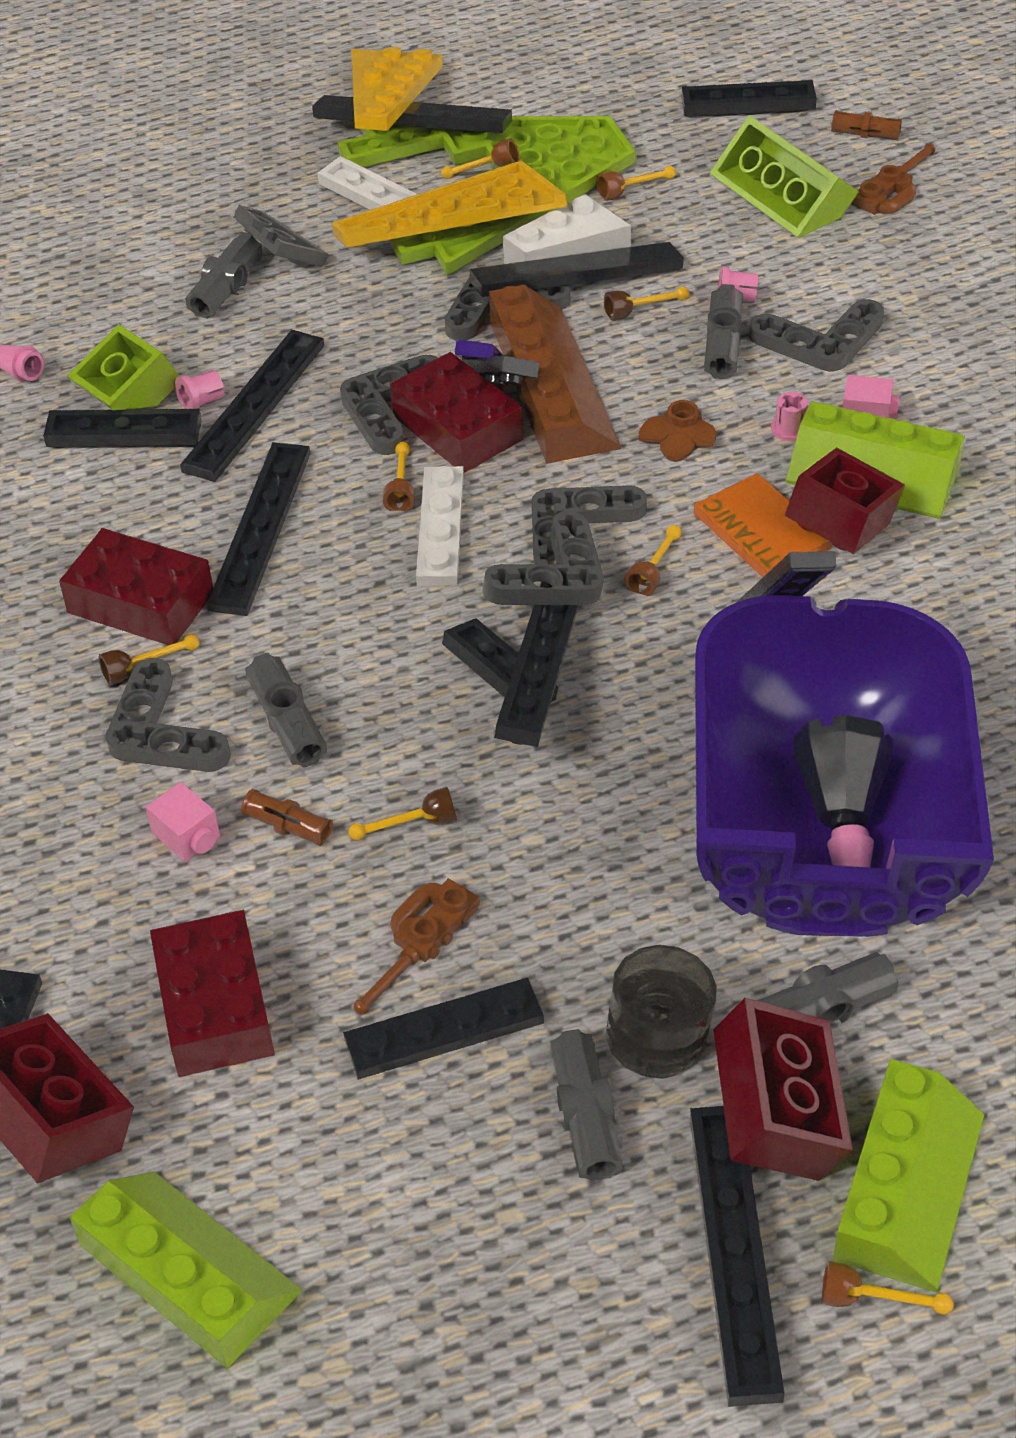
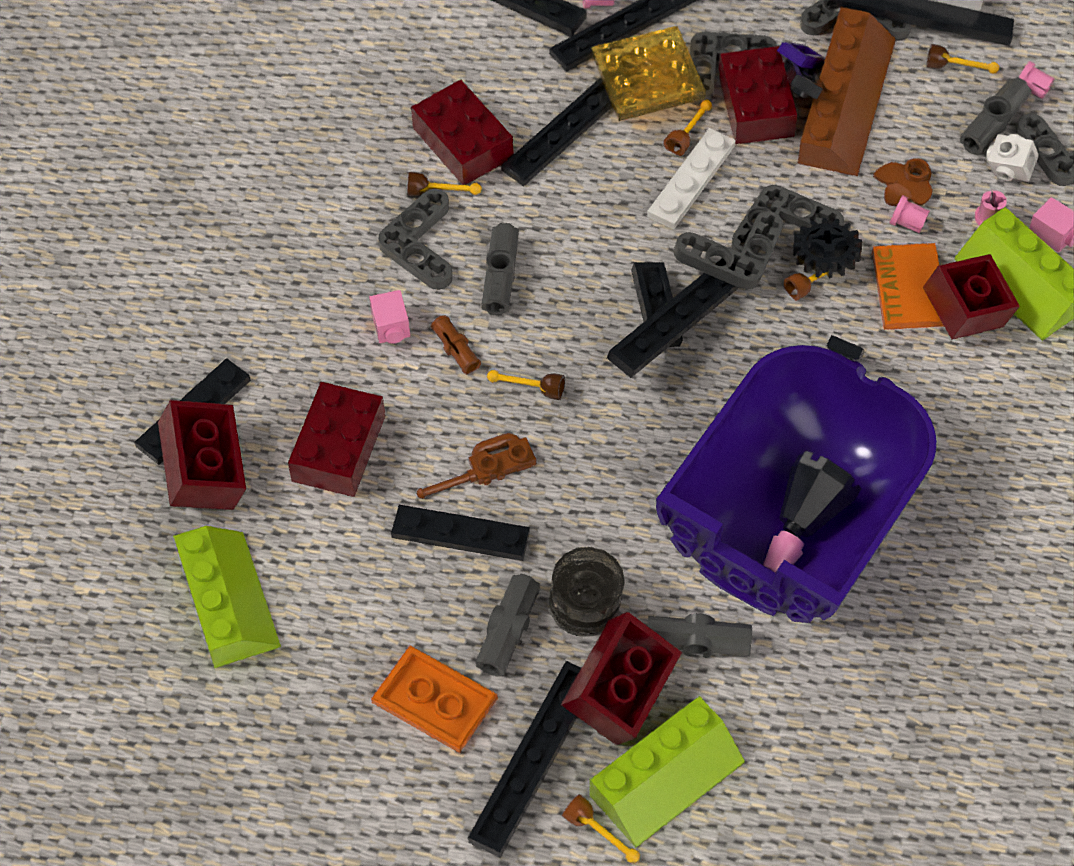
camera: 30 degrees right, 10 degrees up
(319, 438) = (648, 73): none -> clear yellow plate
(553, 1247) = (434, 698): none -> orange tile
(651, 522) = (827, 247): none -> black gear
(709, 458) = (909, 215): none -> bright pink bush
(774, 358) = (1012, 157): none -> white brick

